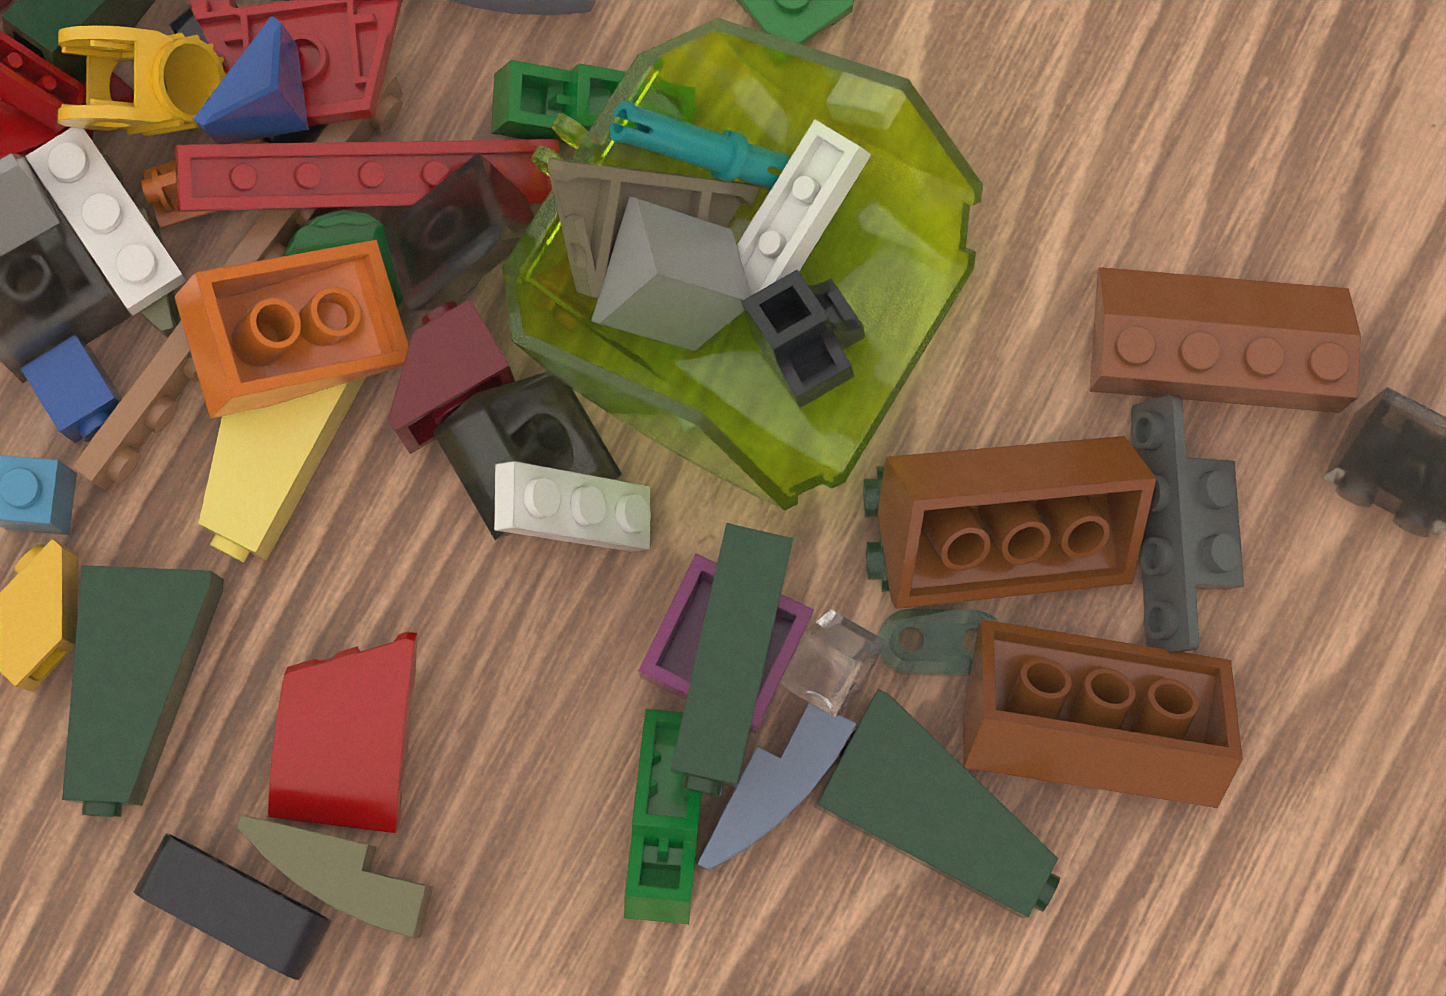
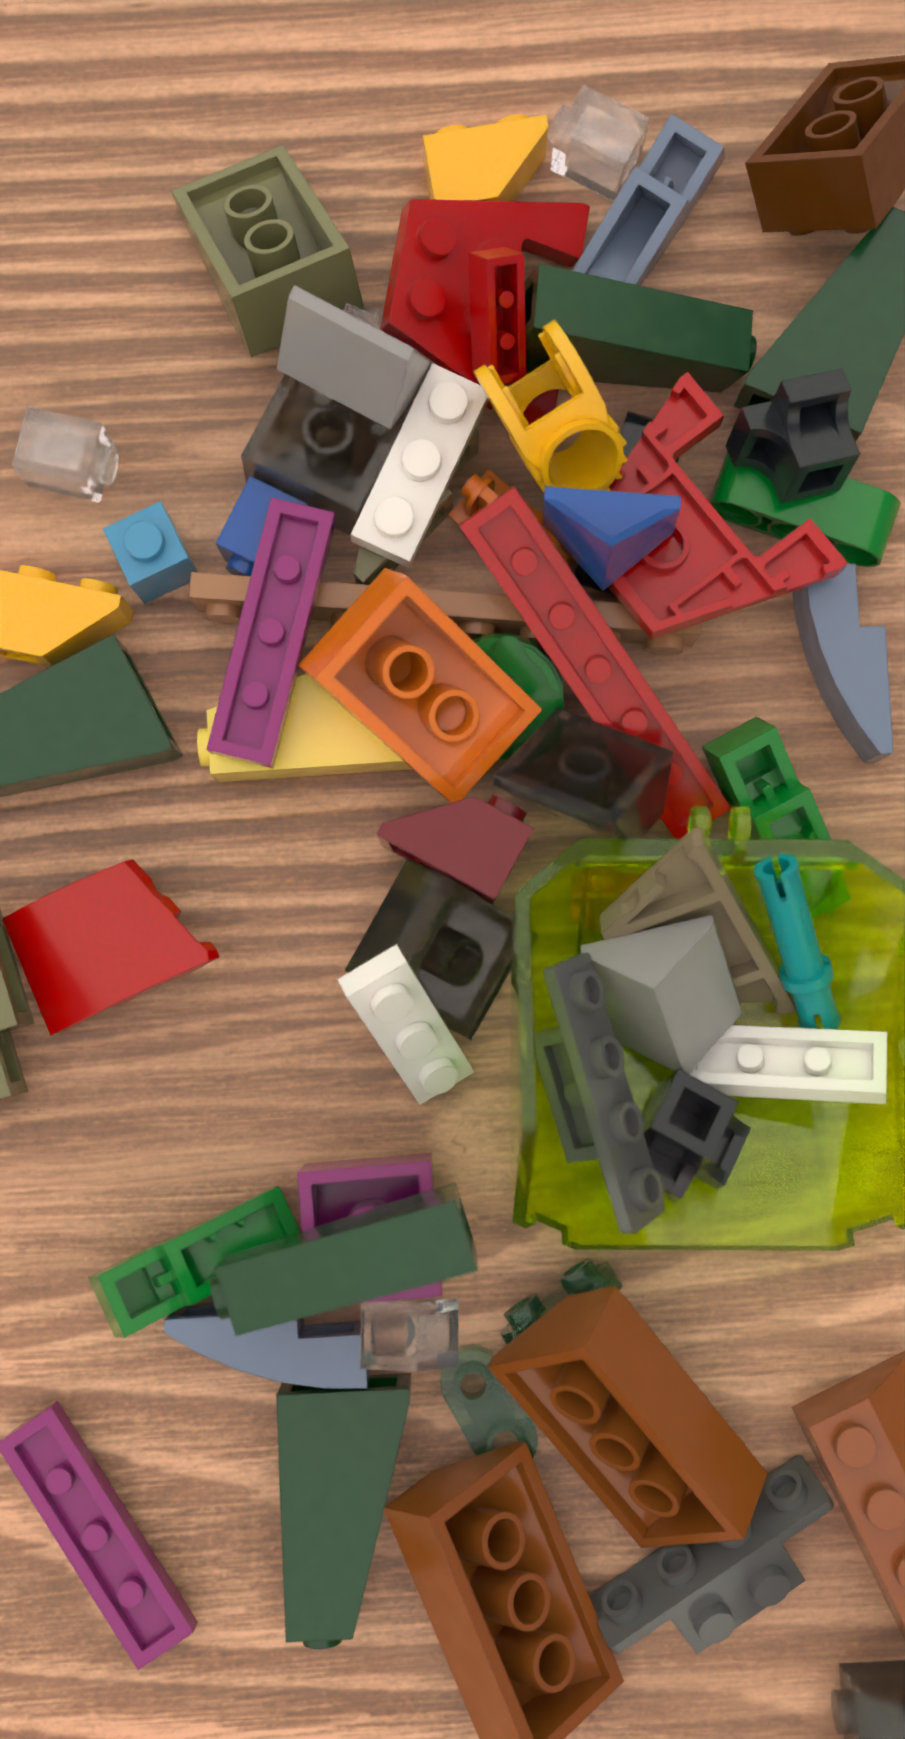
camera: 60 degrees right, 5 degrees up
(169, 424) = (271, 633): none -> magenta plate
(727, 385) = (592, 1095): none -> dark grey bracket

